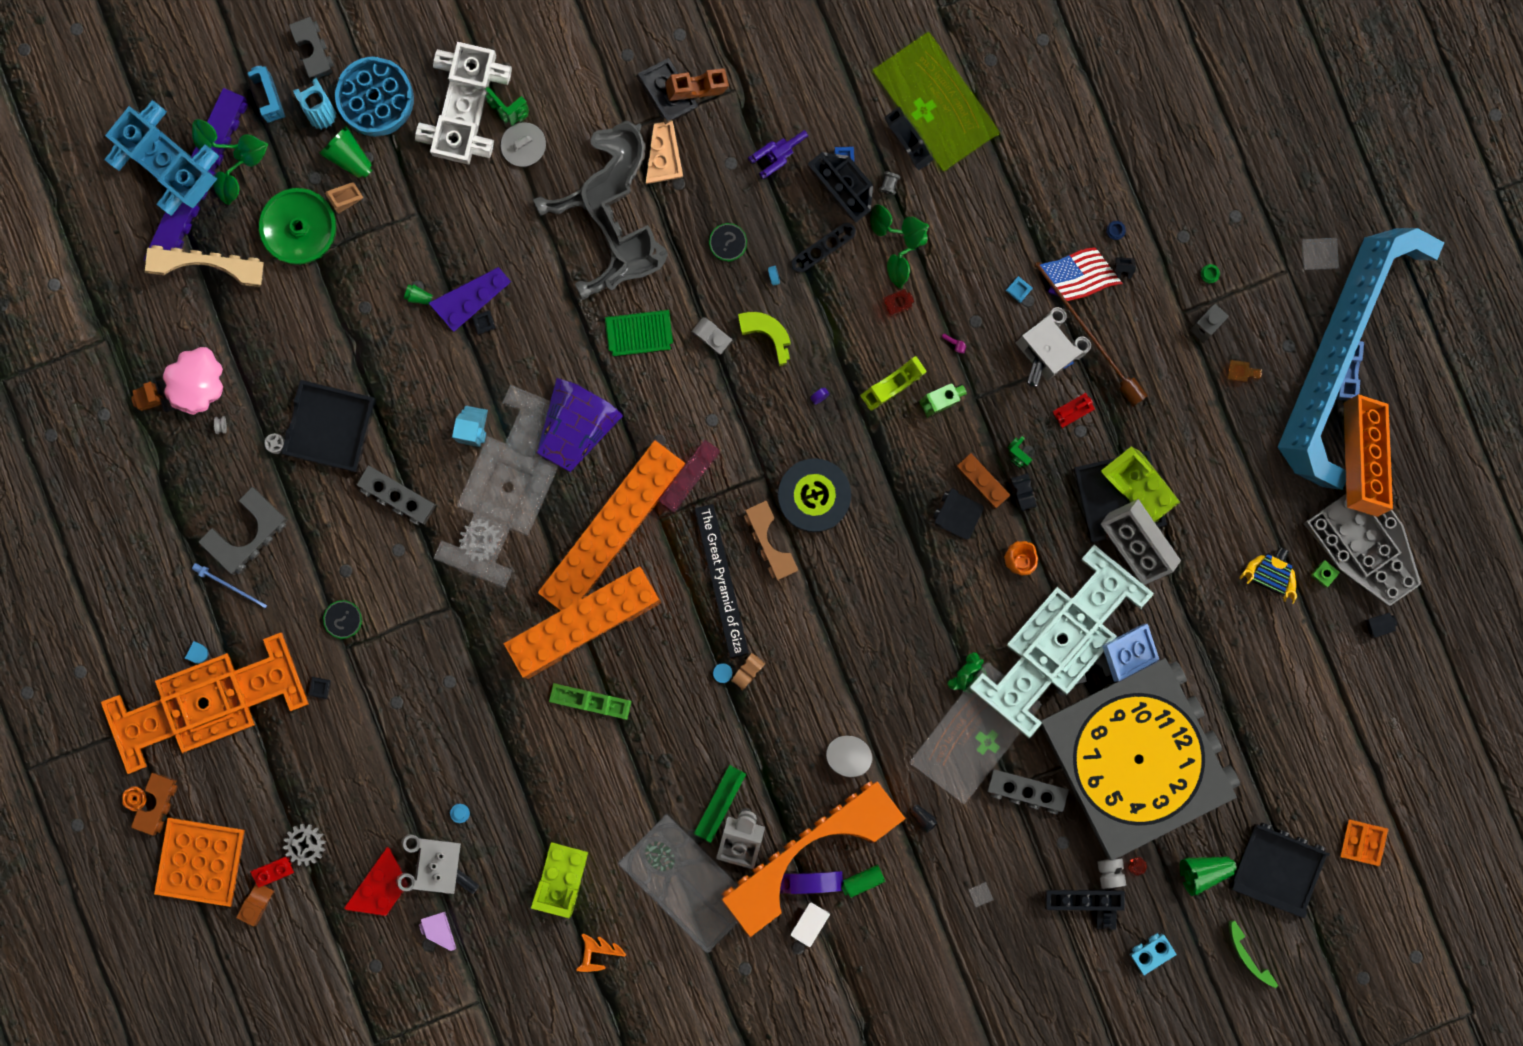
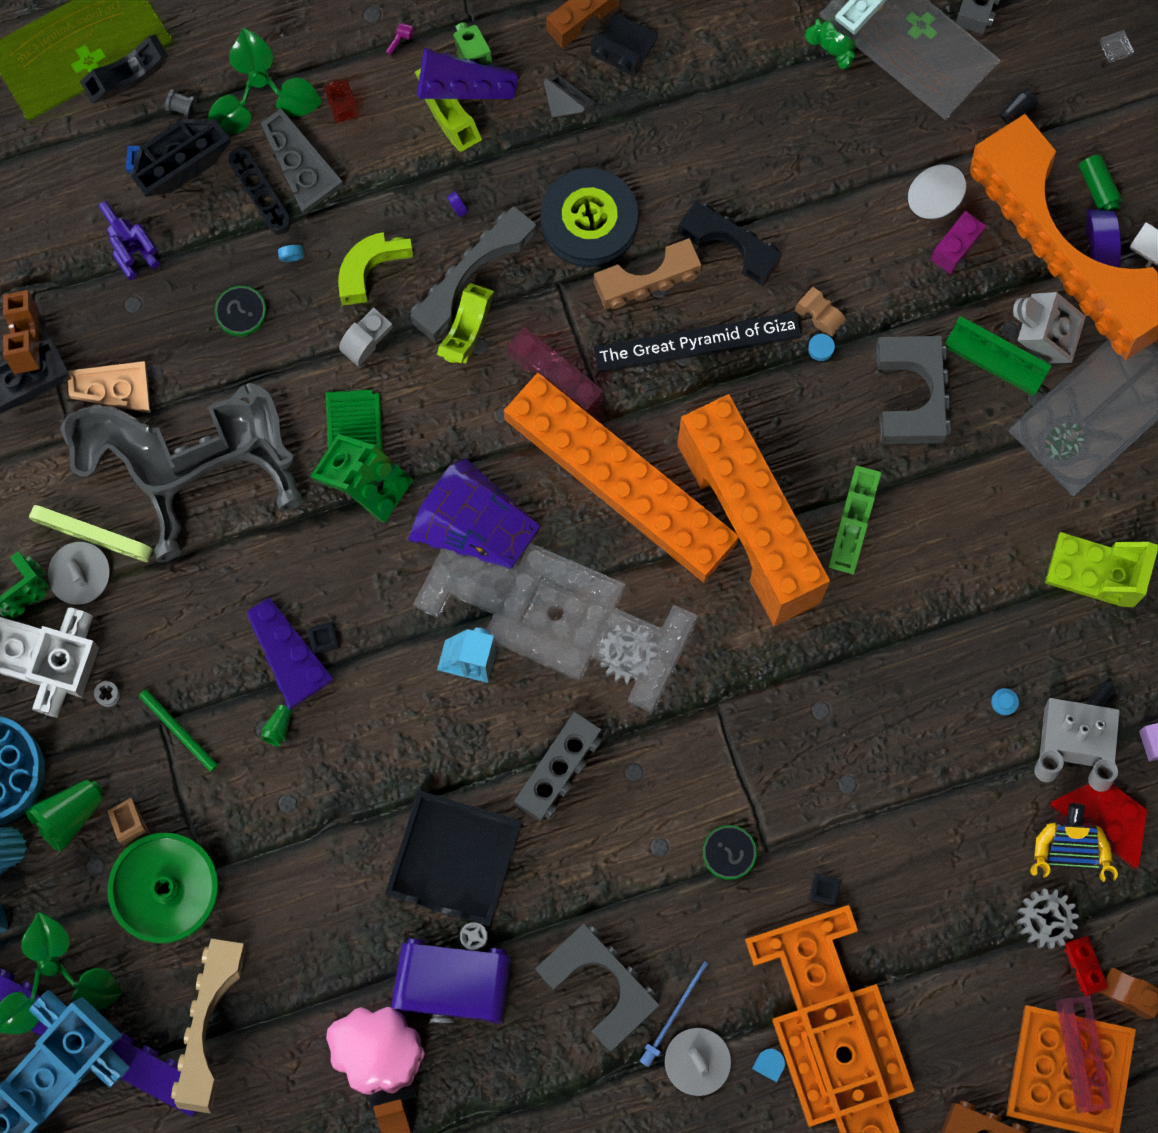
camera: 90 degrees left, 10 degrees down
(197, 603) = (697, 1061): none -> light grey shield
(209, 862) = (1076, 1054): none -> clear pink fence
(240, 430) = (452, 982): none -> dark purple windscreen
(357, 861) = (1073, 843): none -> torso
(413, 224) = (178, 730): none -> green bar
(436, 179) = (115, 693): none -> light grey bush
(551, 150) = (90, 533): none -> yellowish green beam
(602, 340) = (357, 470): none -> green bracket
(666, 754) = (925, 357): none -> dark grey arch
(720, 408) = (467, 324): none -> lime arch
(733, 387) = (507, 237): none -> dark grey arch
(787, 622) = (705, 225): none -> black arch
(808, 773) = (958, 242): none -> magenta brick
(844, 278) = (302, 165): none -> dark grey wing
(912, 390) = (454, 78): none -> dark purple wing
(912, 472) = (565, 97): none -> dark grey slope

